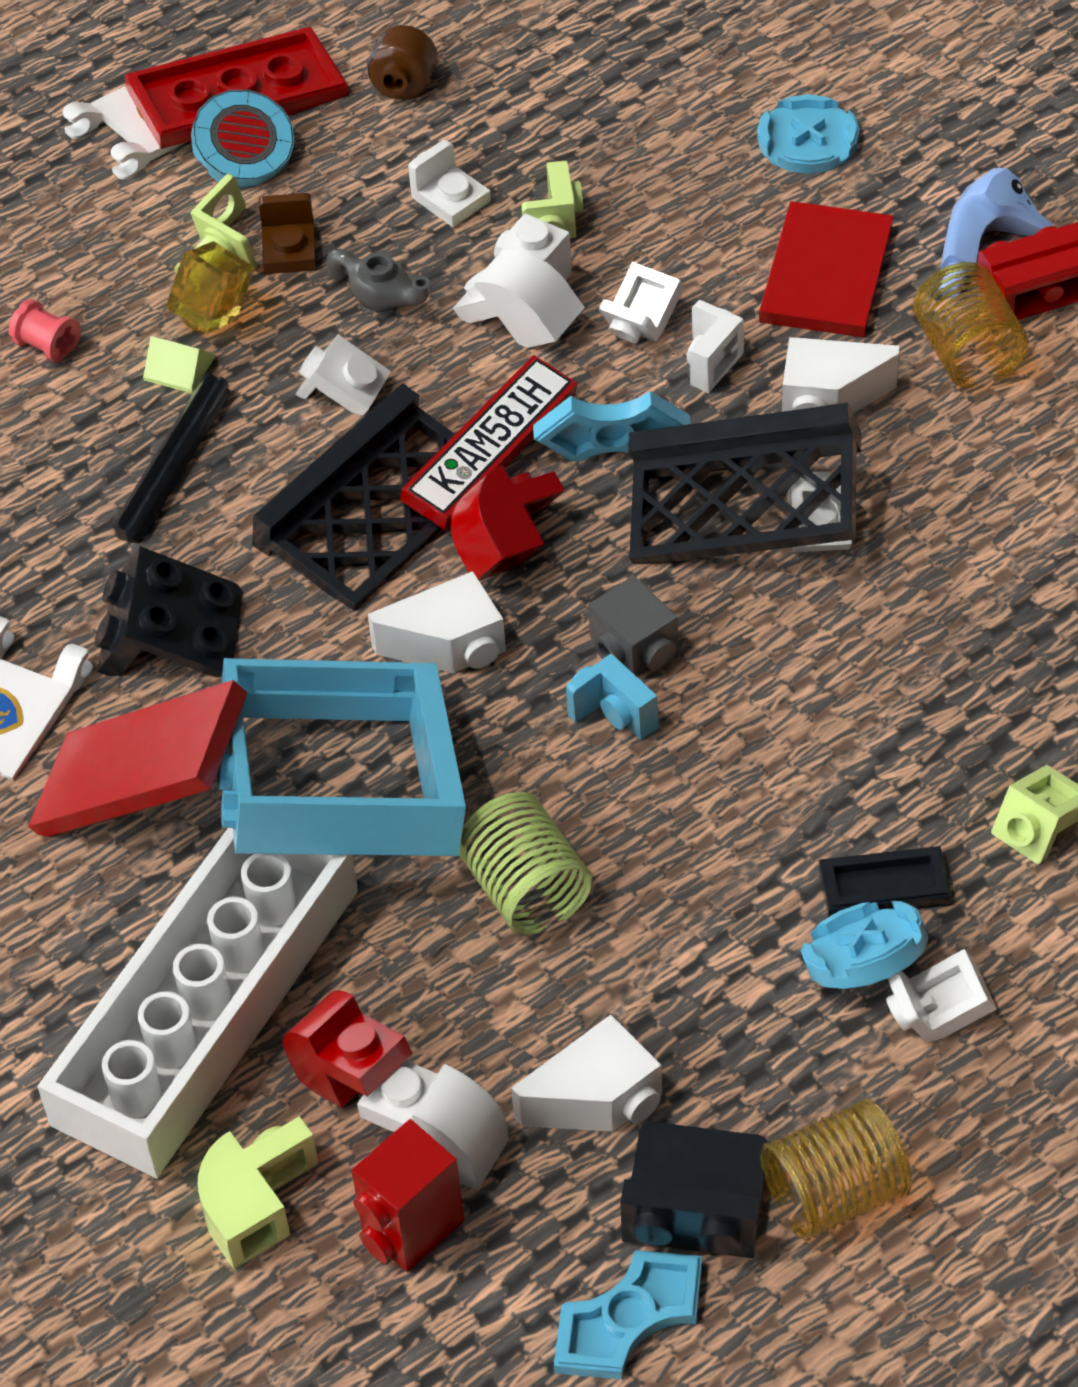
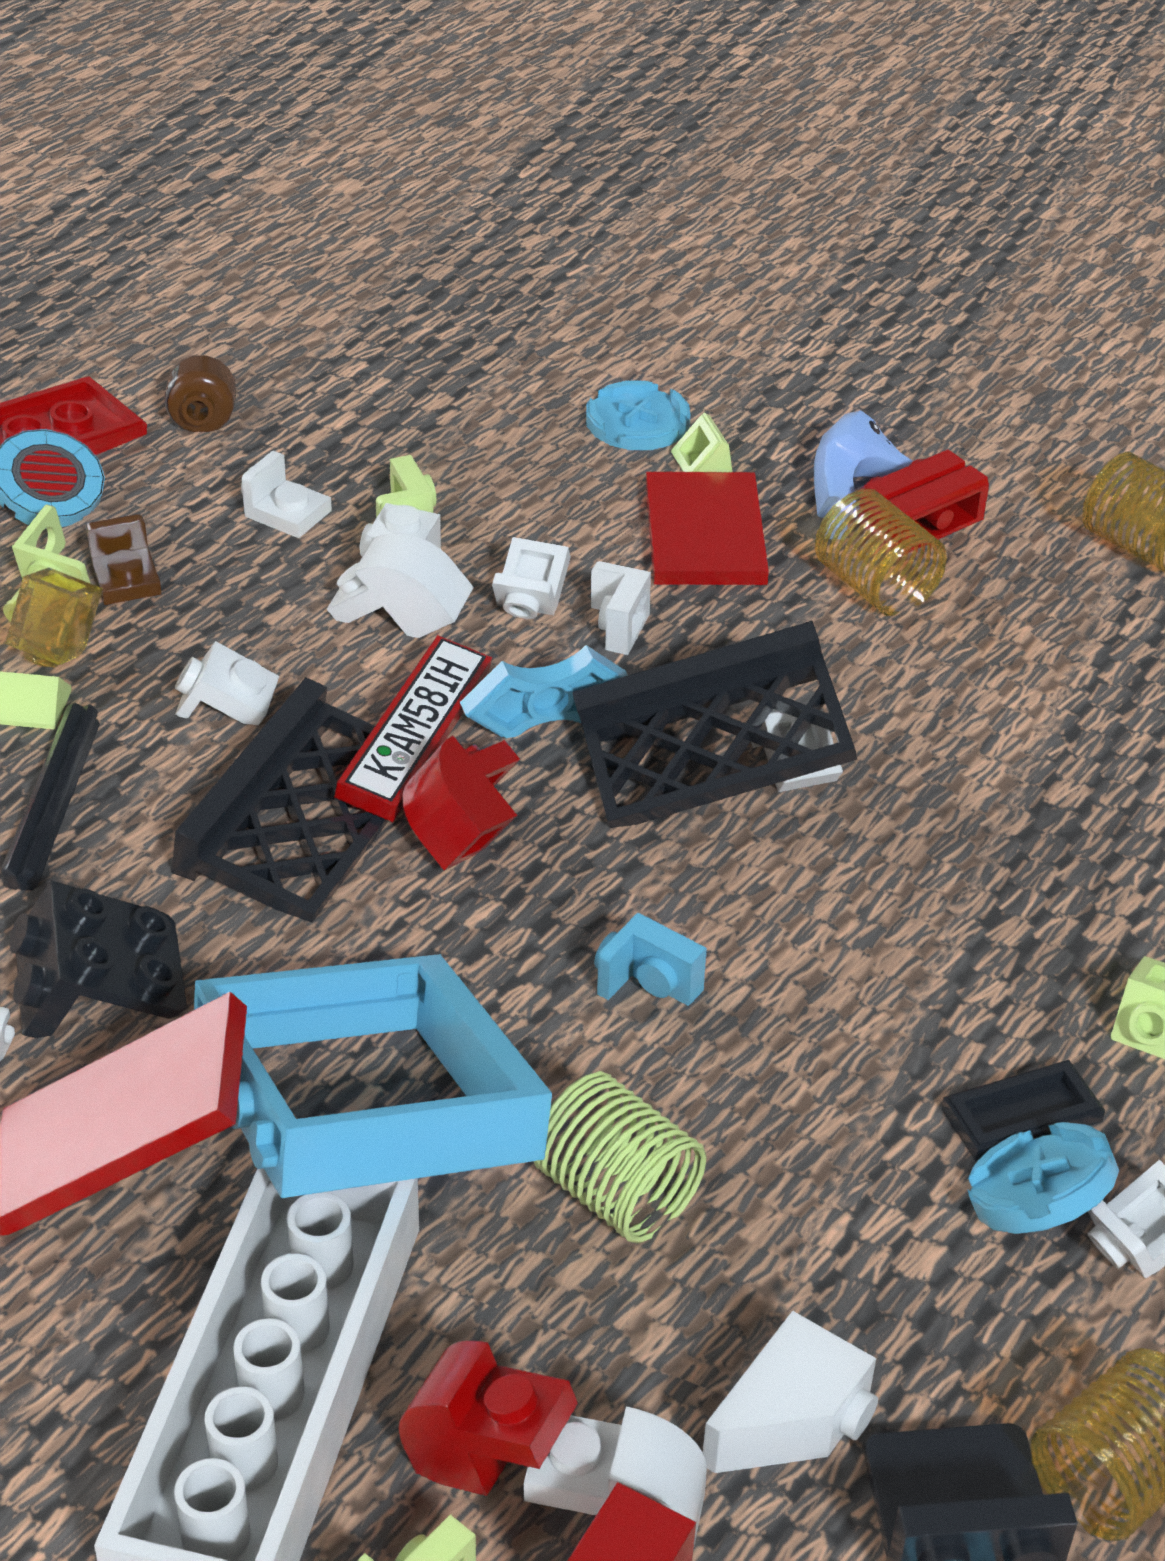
camera: 20 degrees left, 10 degrees down
(377, 280) = (238, 590): dark grey piece -> none
(441, 625) = (426, 914): white slope -> none
(634, 627) = (645, 880): dark grey brick -> none
(837, 373) = (758, 607): white slope -> none
(852, 183) = (703, 448): none -> yellowish green slope

